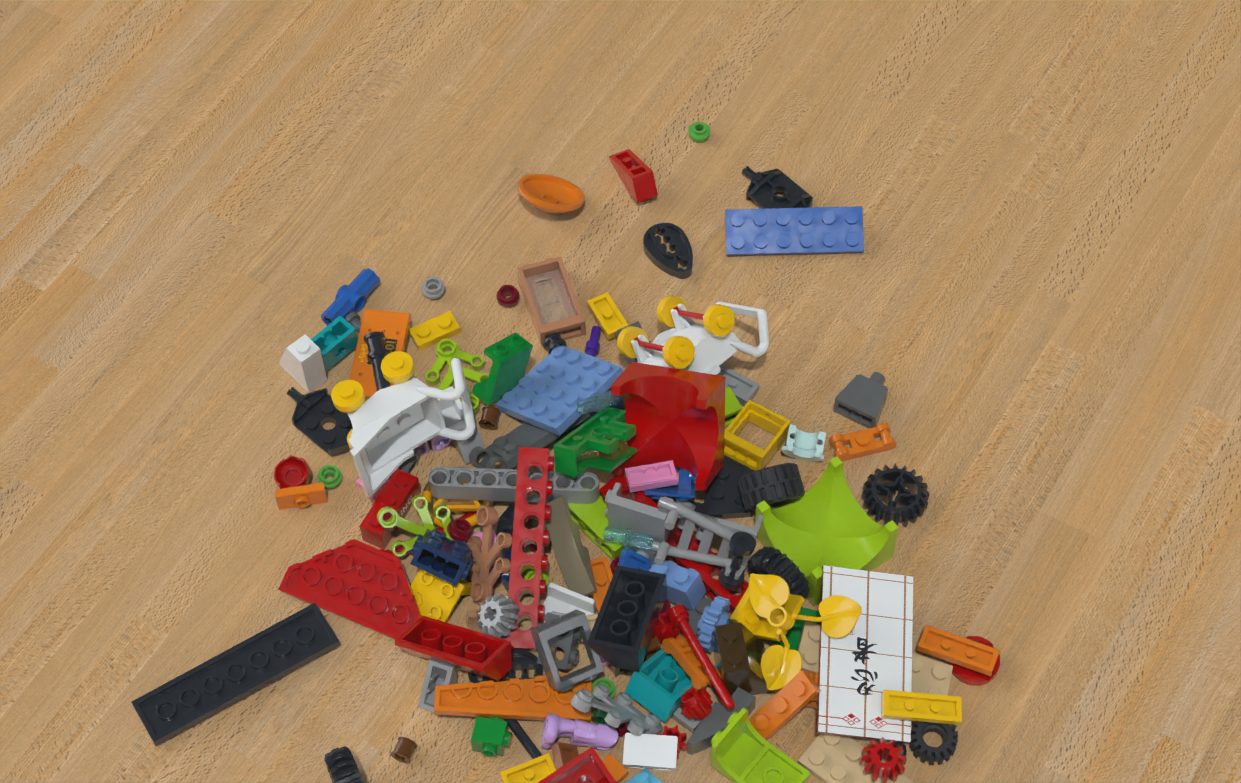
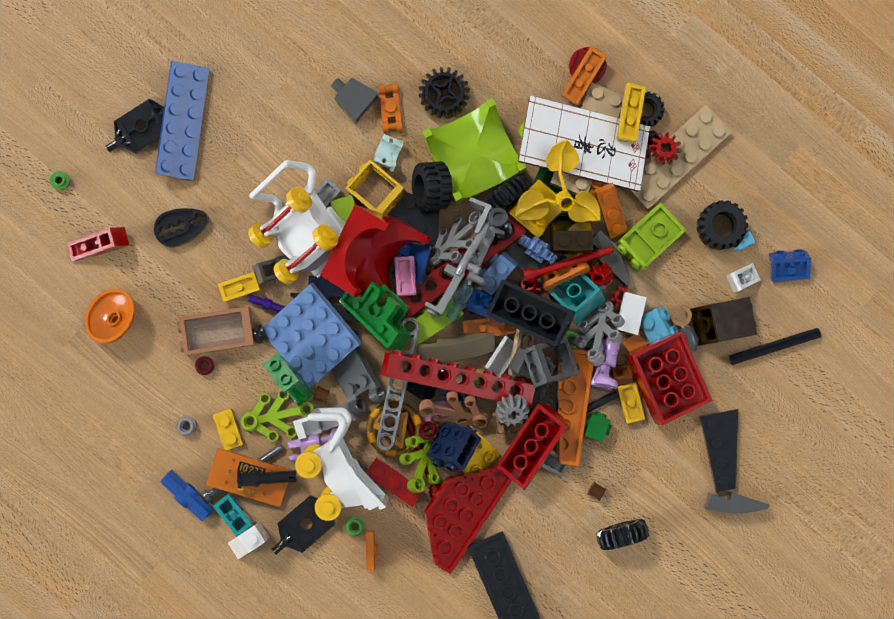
camera: 85 degrees left, 30 degrees up
(292, 472) = (350, 556): red hair -> none
(597, 402) = (340, 307): clear light blue axle -> none

